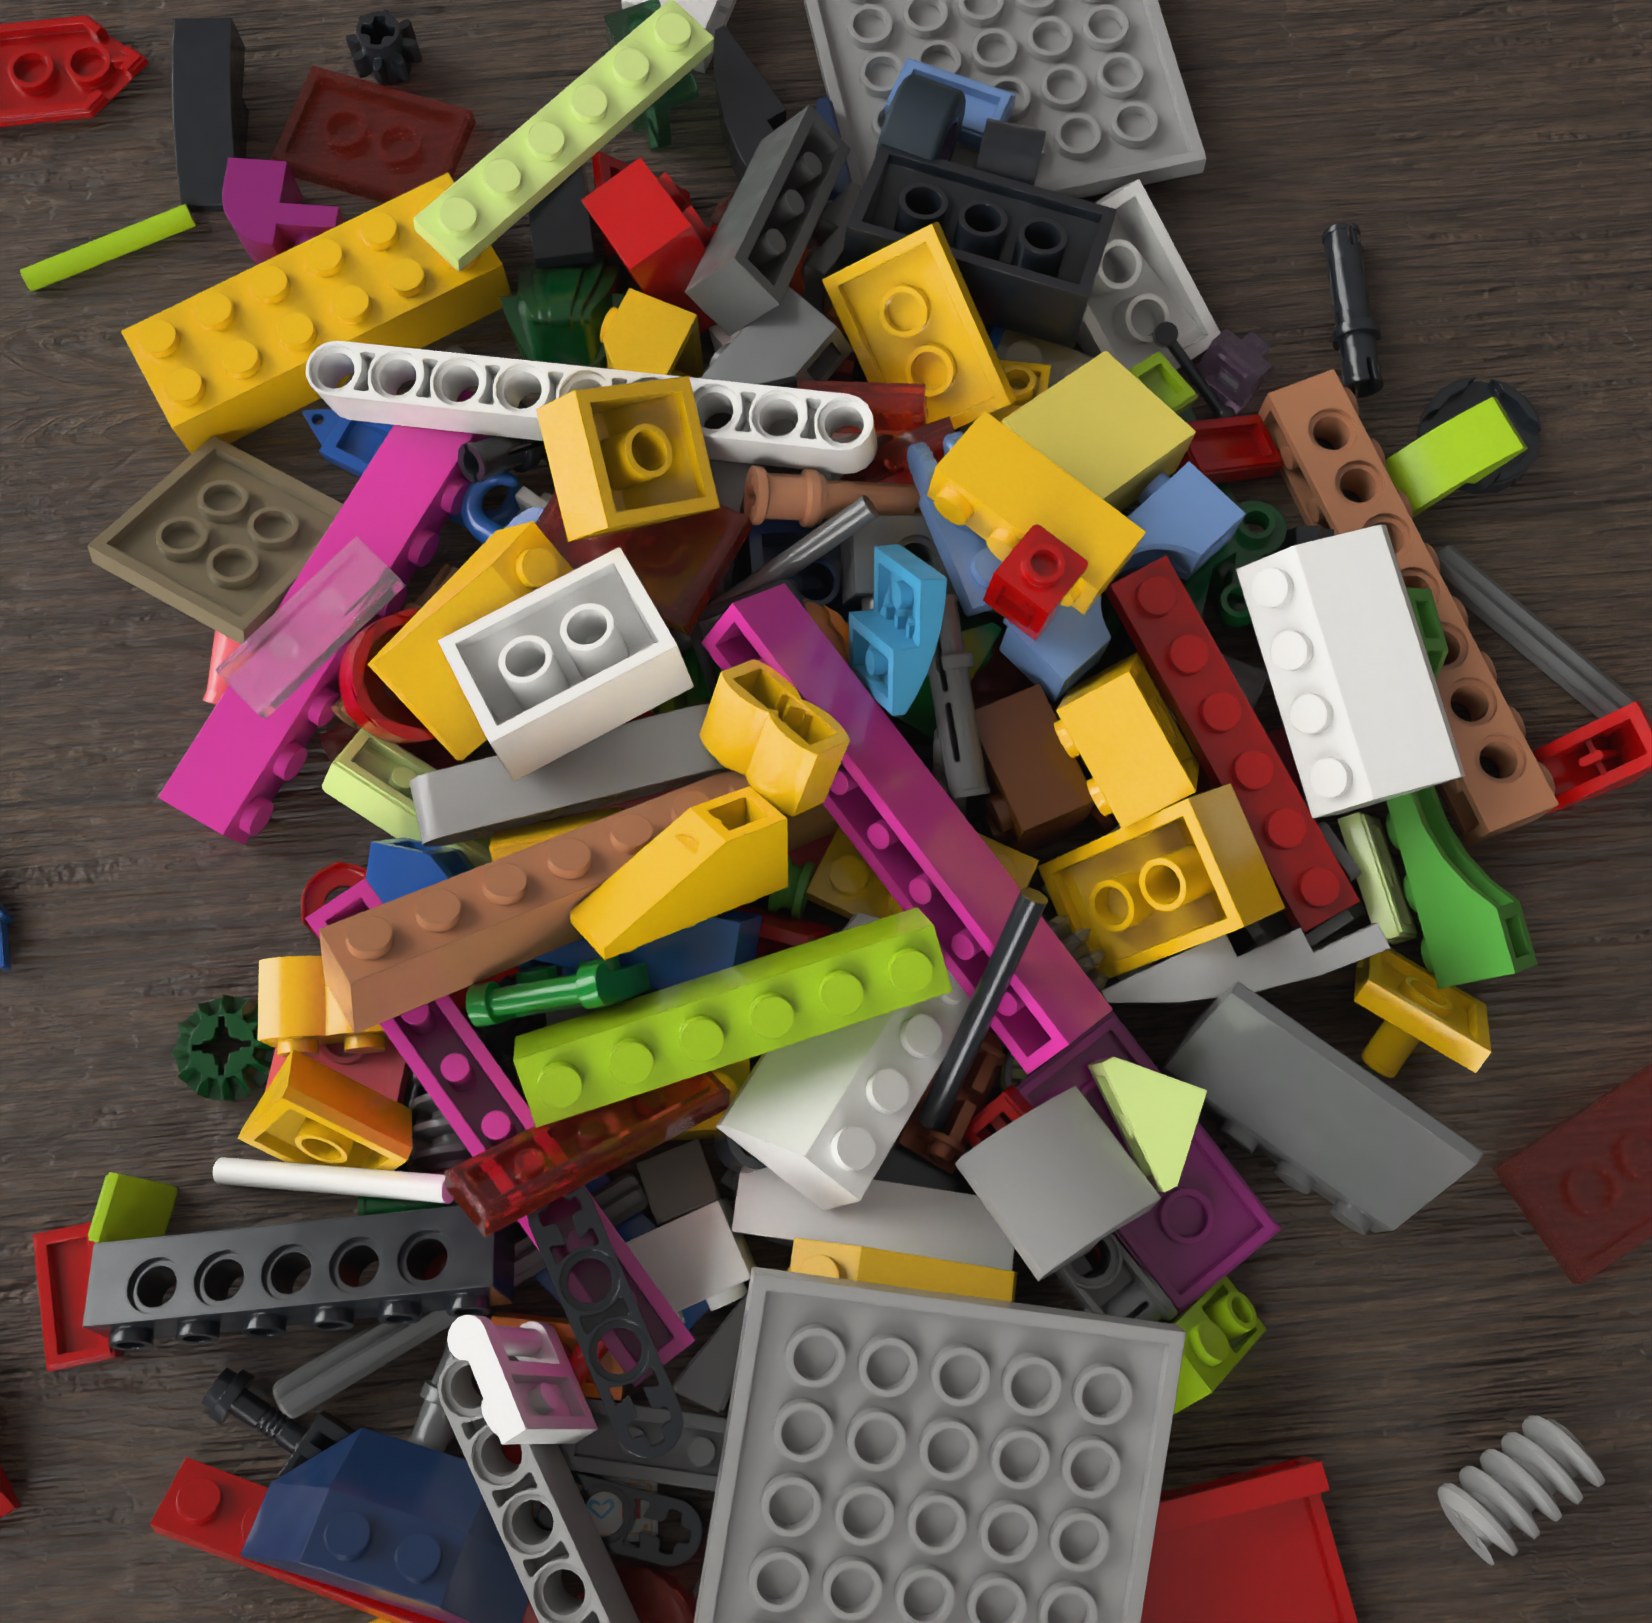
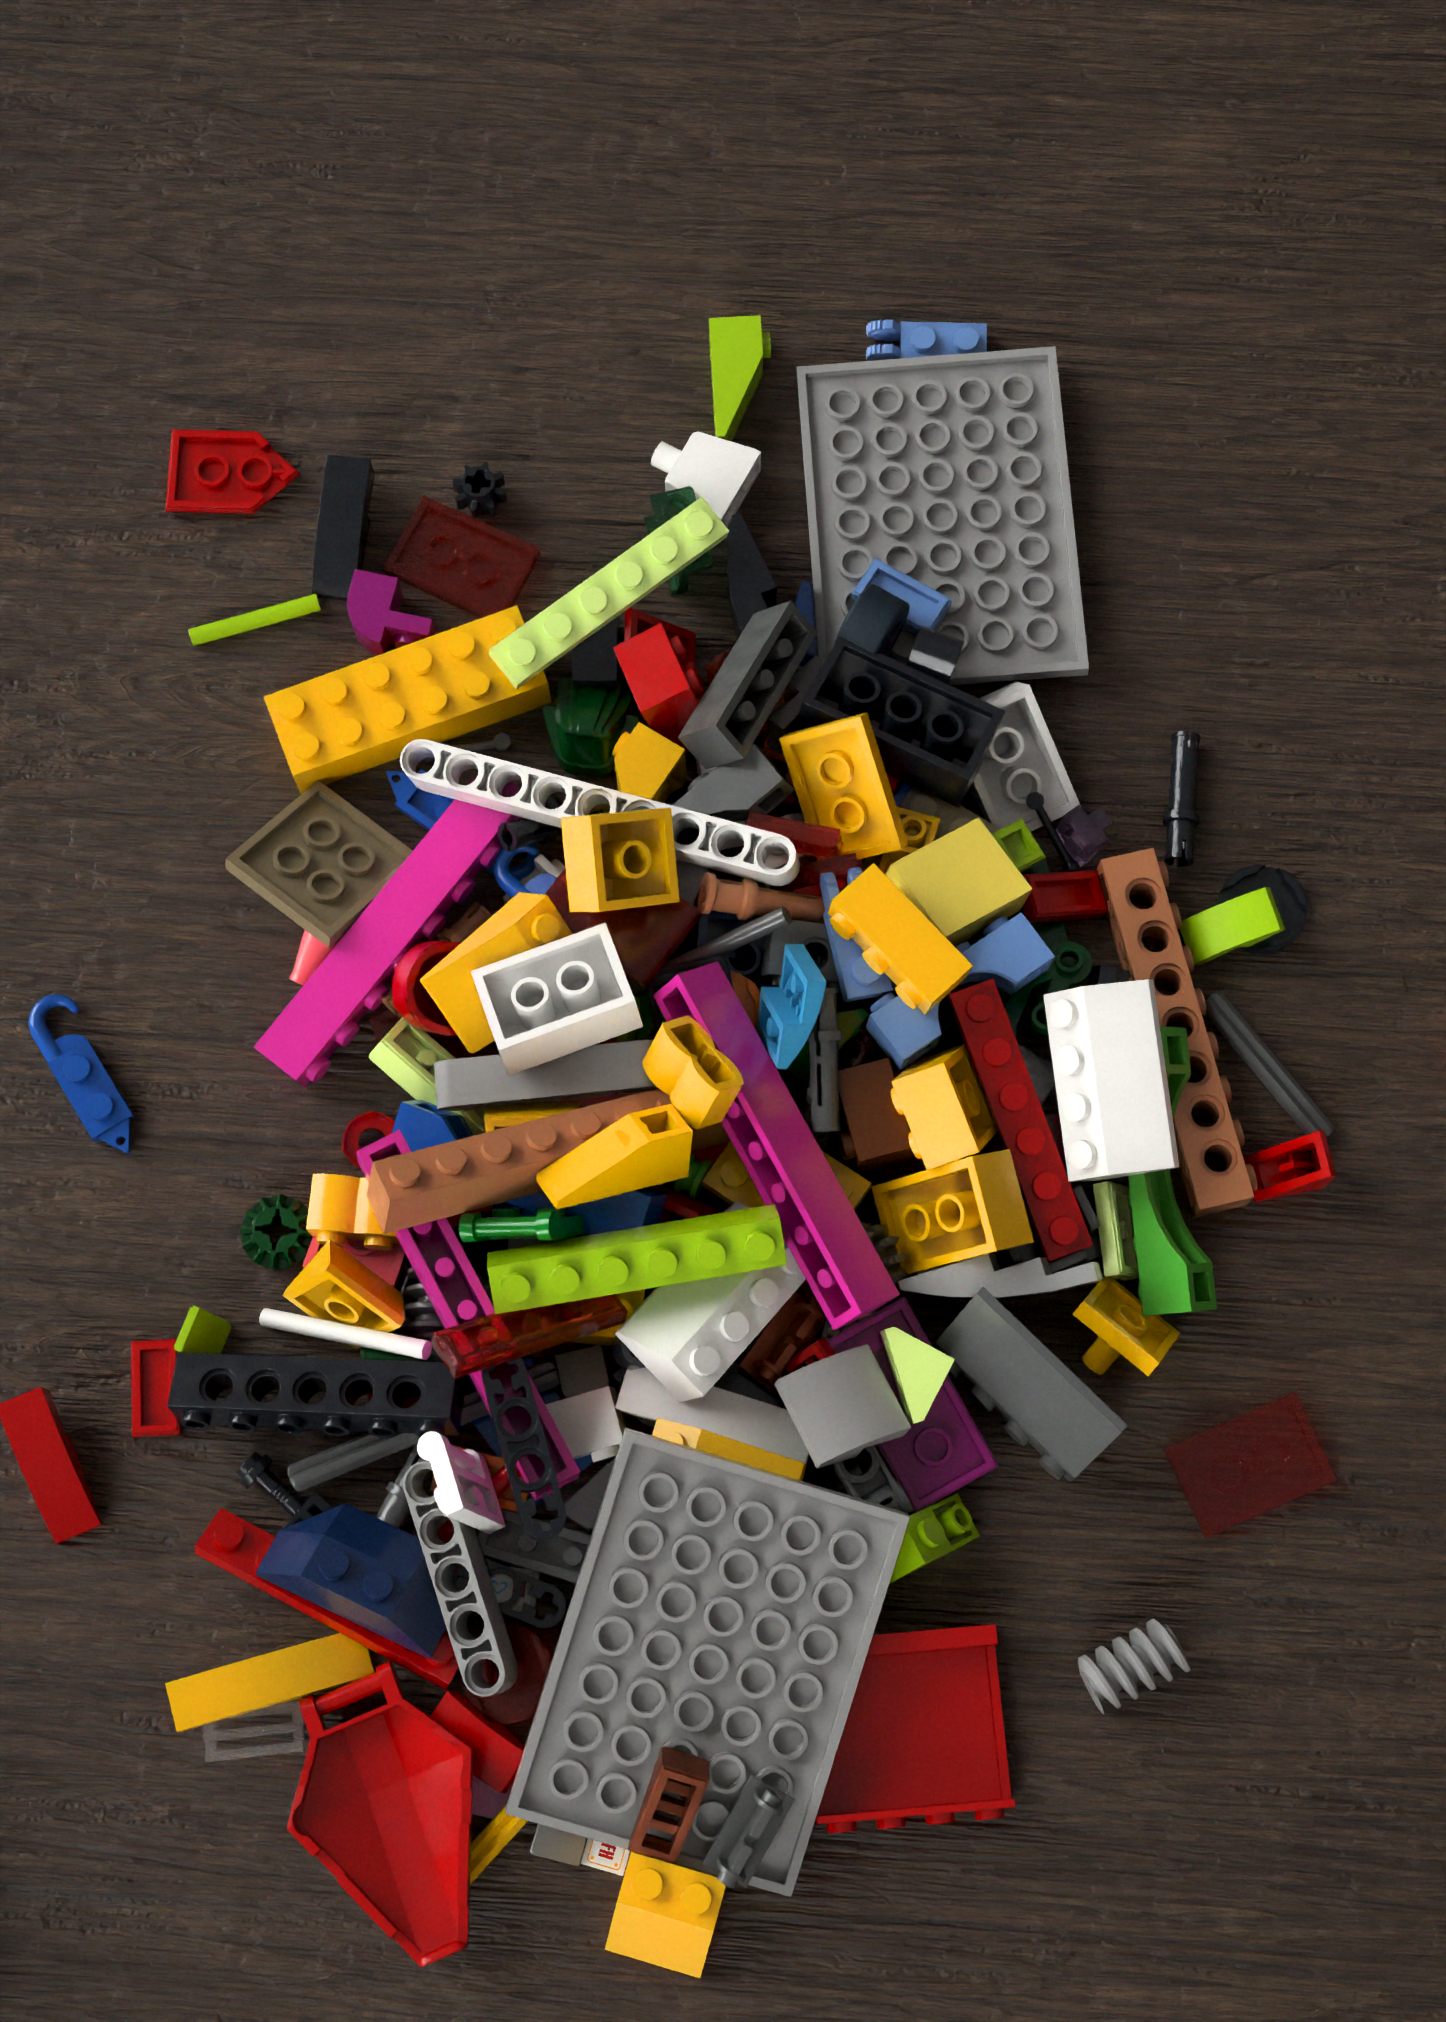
camera: 10 degrees right, 0 degrees up
(310, 627) = (377, 941): clear tile -> none
(982, 1007) = (807, 1281): black bar -> none
(1034, 580) = (890, 988): red bracket -> none

